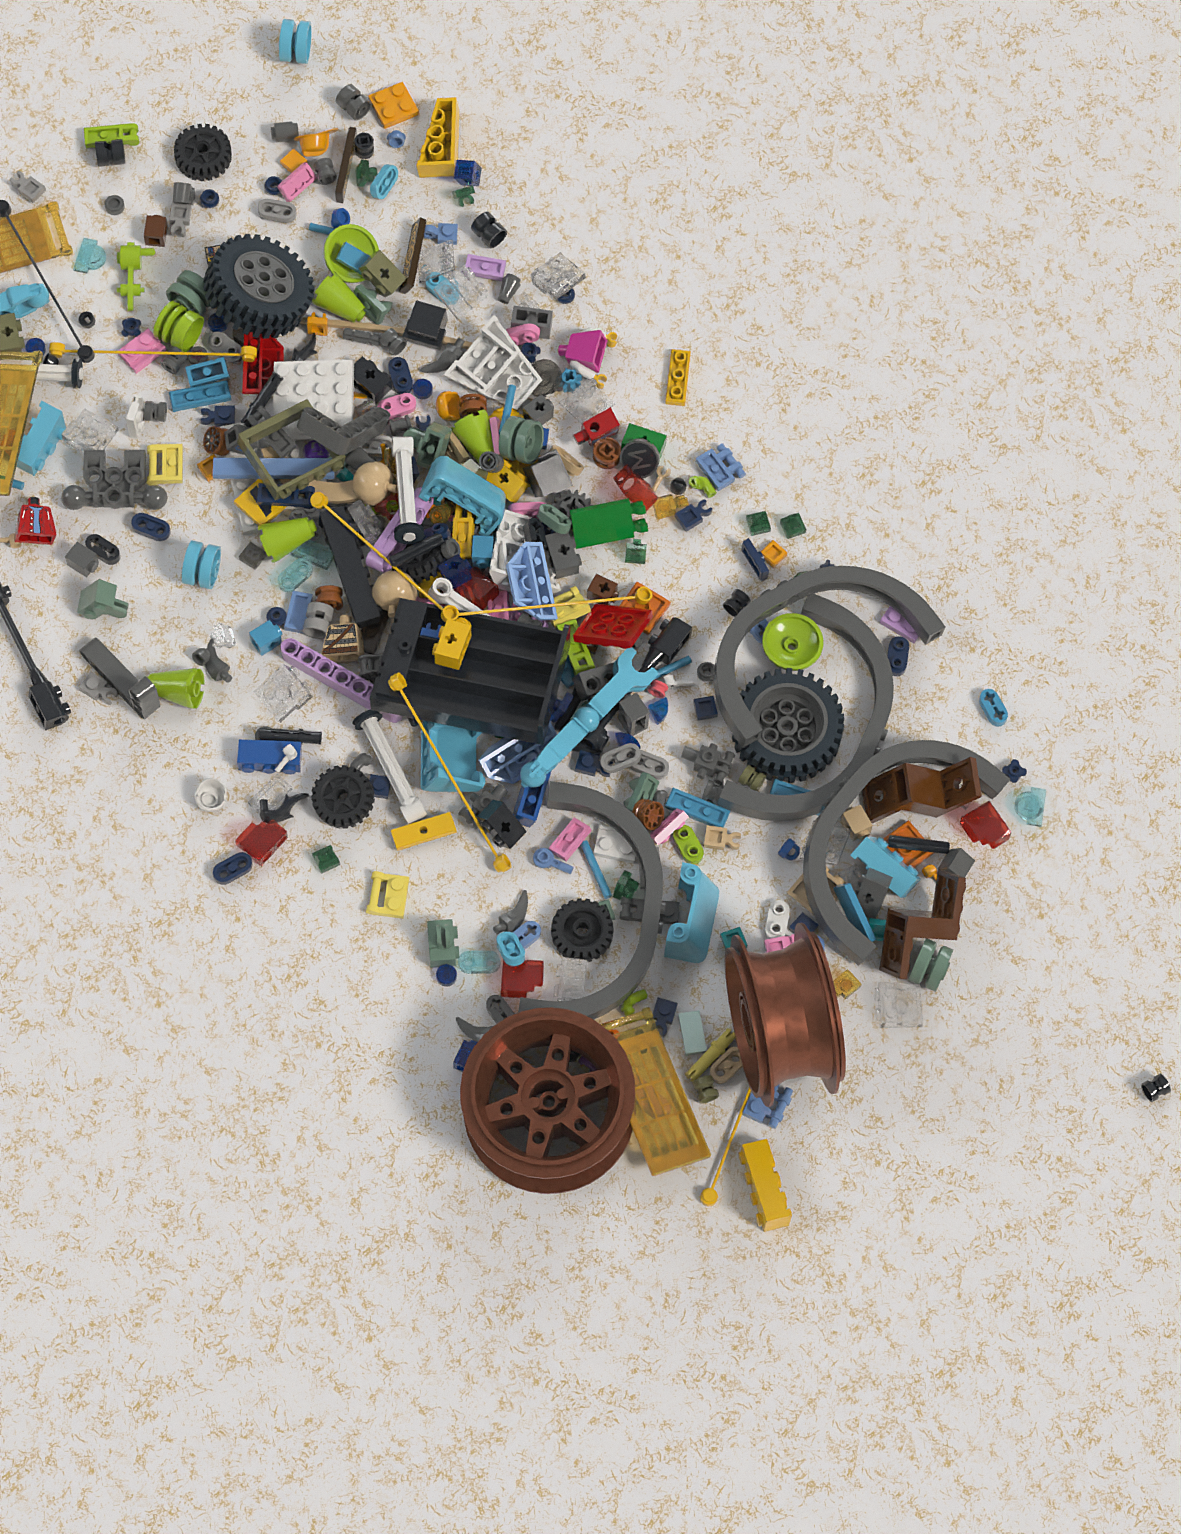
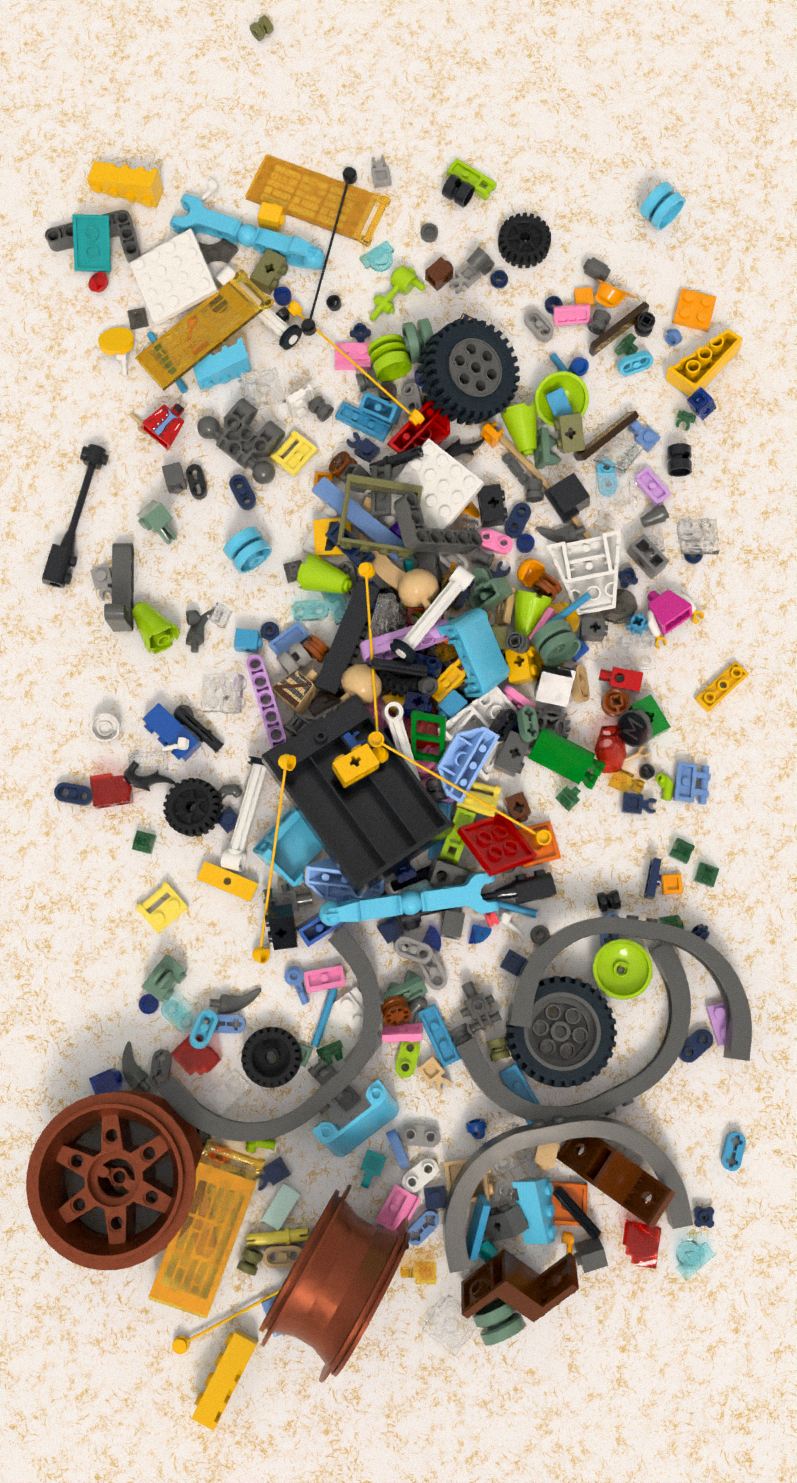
camera: 45 degrees right, 10 degrees up
(353, 101) = (665, 284): dark grey wheel -> none
(498, 580) = (419, 715): none -> green window
(524, 333) = (632, 561): bright pink plate -> none
(743, 914) = (398, 1149): none -> medium blue beam
(752, 892) = (420, 1135): none -> light grey plate

